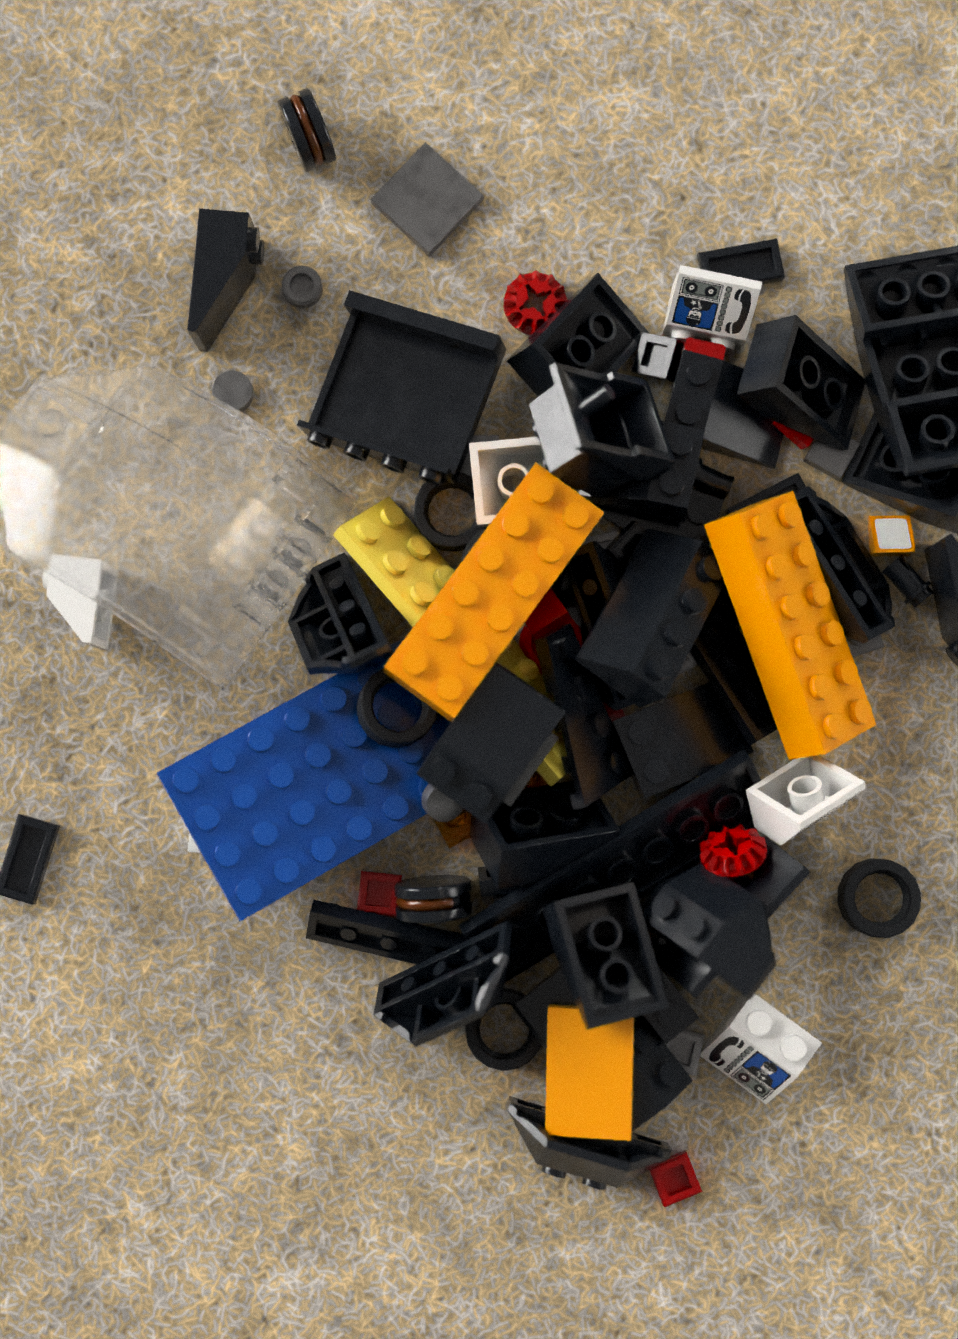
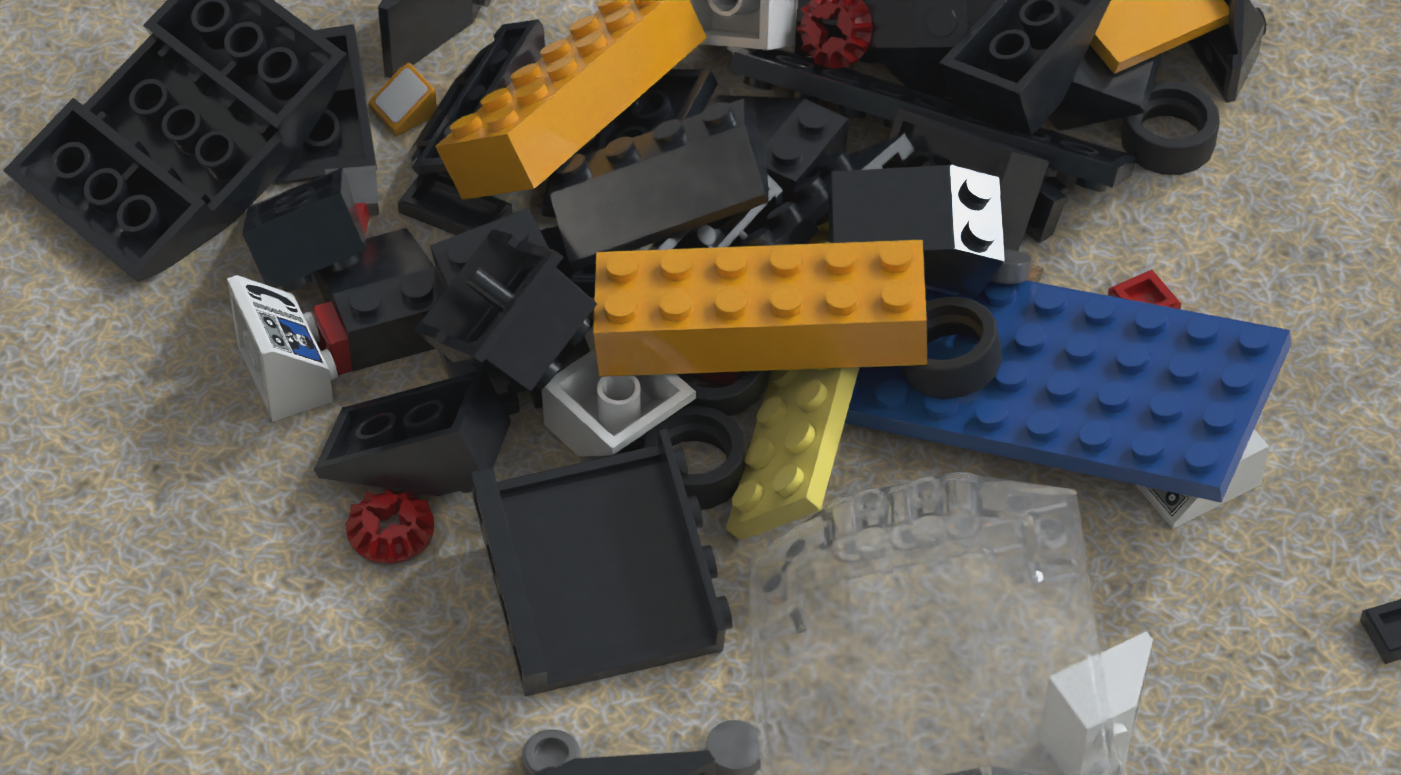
camera: 125 degrees left, 35 degrees down
(336, 622) = (919, 422): black wedge -> none
(377, 933) = (1170, 249): black plate -> none
(427, 199) = (344, 697): flat silver tile -> none
(433, 898) = (1106, 233): black head -> none
(446, 988) = (1182, 153): black wedge -> none
(657, 357) = (366, 373): plate -> none
(751, 261) = (201, 370): black tile -> none
(908, 581) = (444, 55): black pin -> none

